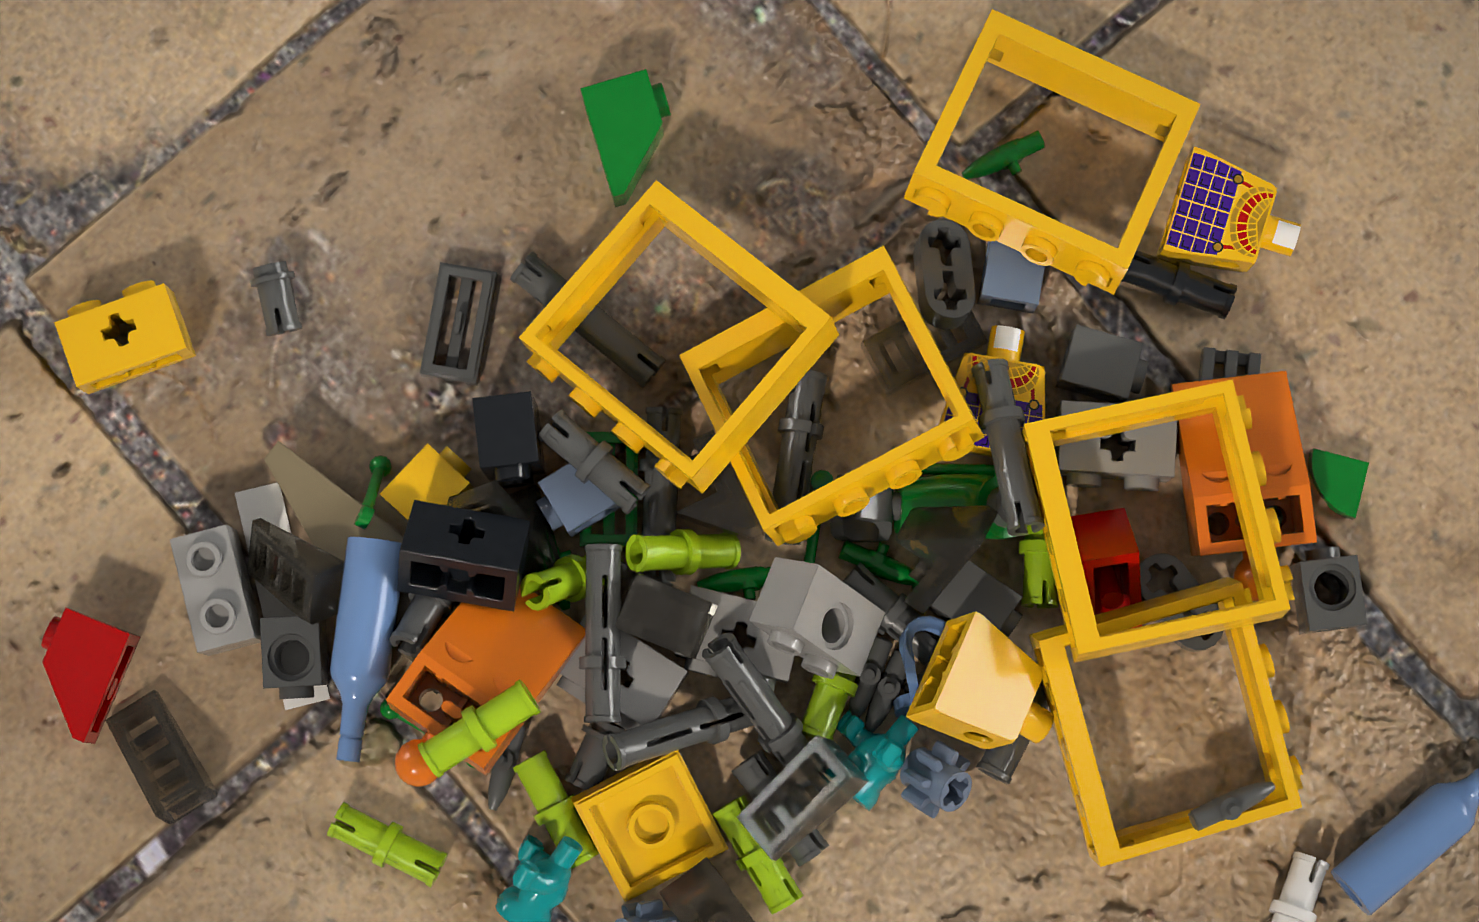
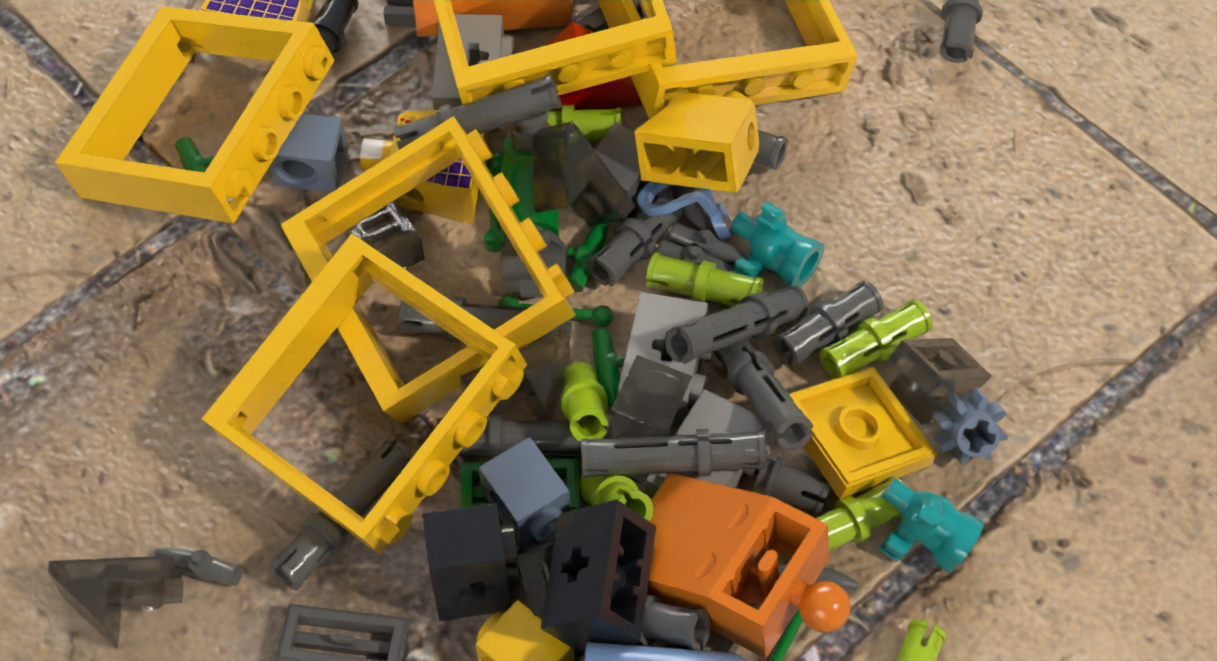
camera: 90 degrees left, 25 degrees down
(478, 728) = (788, 520): lime pin -> none
(512, 96) = (104, 585): none -> clear smoke slope
(545, 187) = (203, 565): none -> dark grey helmet
(594, 461) = (496, 458): dark grey pin -> none
(625, 127) = (147, 483): green slope -> none
(815, 811) = (785, 254): clear smoke slope -> none
(816, 618) = (646, 266): light grey brick -> none
(932, 275) = (291, 198): dark grey beam -> none
(935, 779) = (791, 190): sand blue gear -> none
(1102, 365) = (397, 82): dark grey brick -> none

